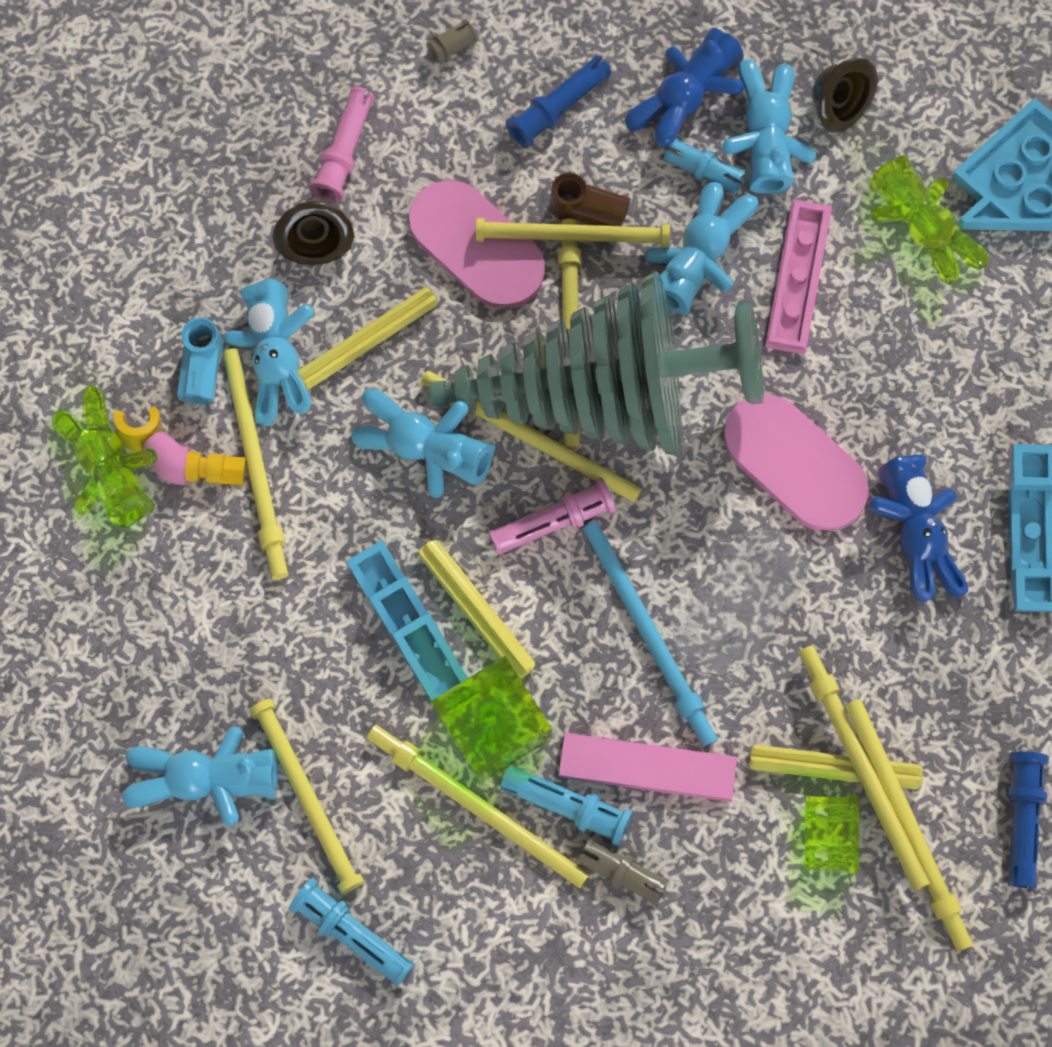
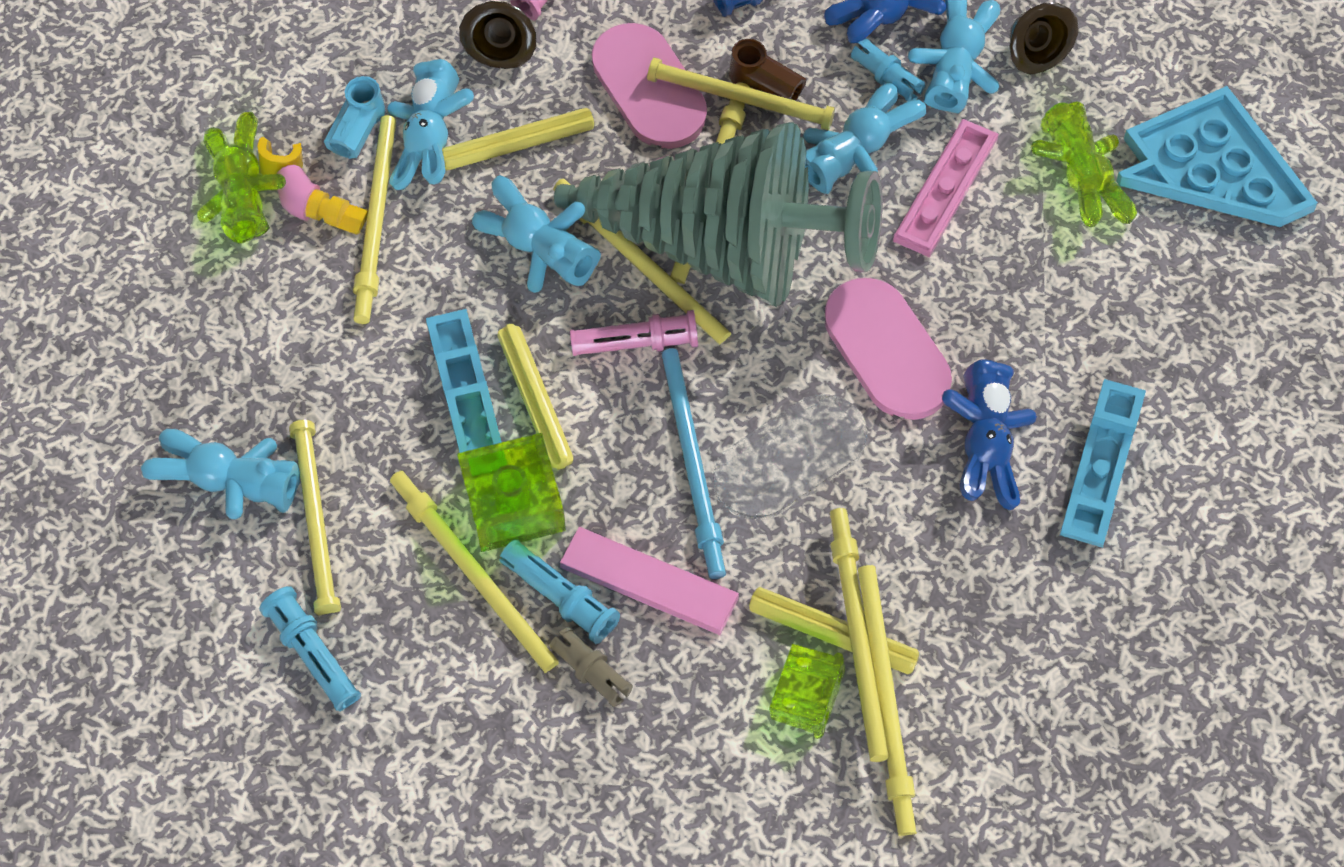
camera: 15 degrees right, 10 degrees down
(1027, 798) = (1015, 710): blue pin -> none

